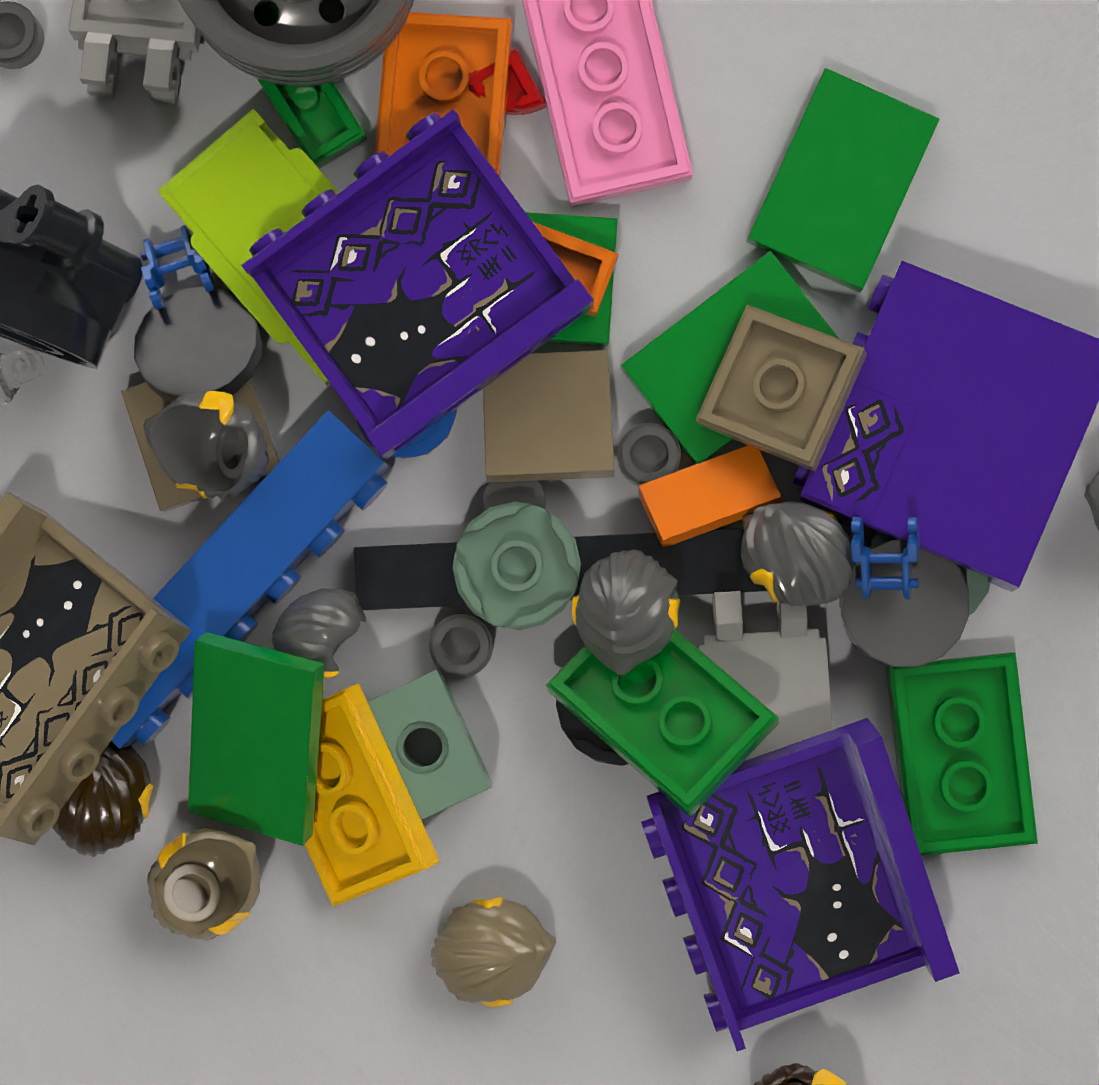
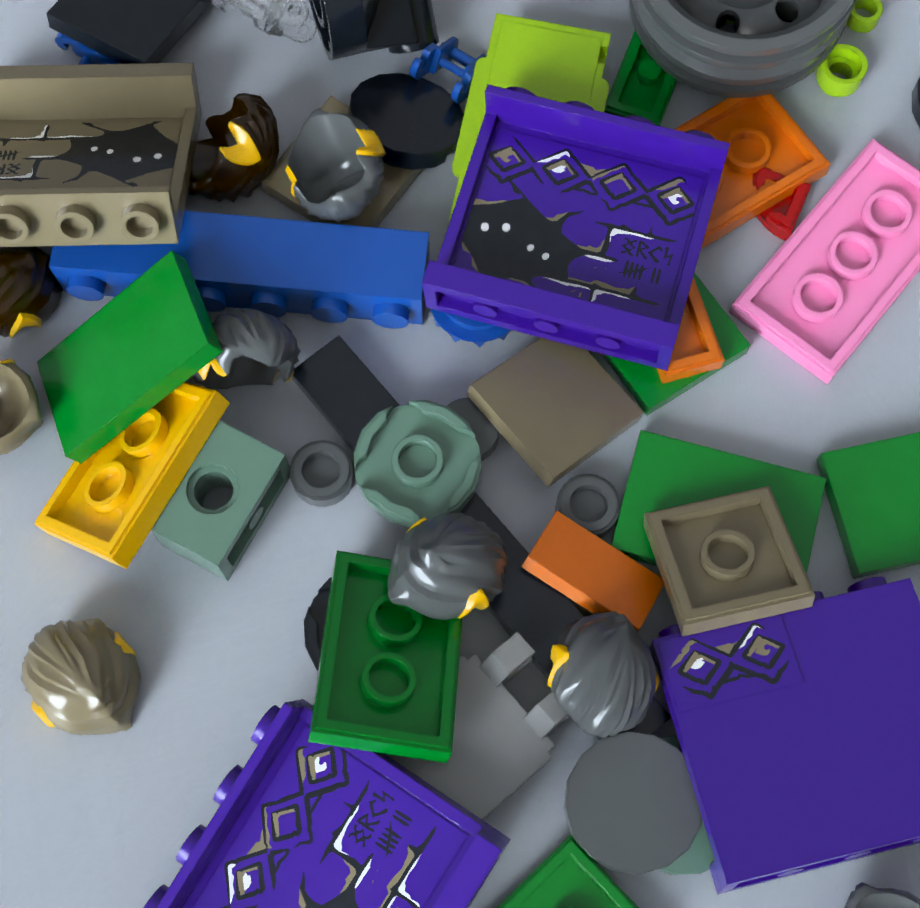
camera: 50 degrees right, 15 degrees down
(119, 513) = (239, 153): none -> dark brown hair
(863, 554) = (645, 731): blue piece -> none

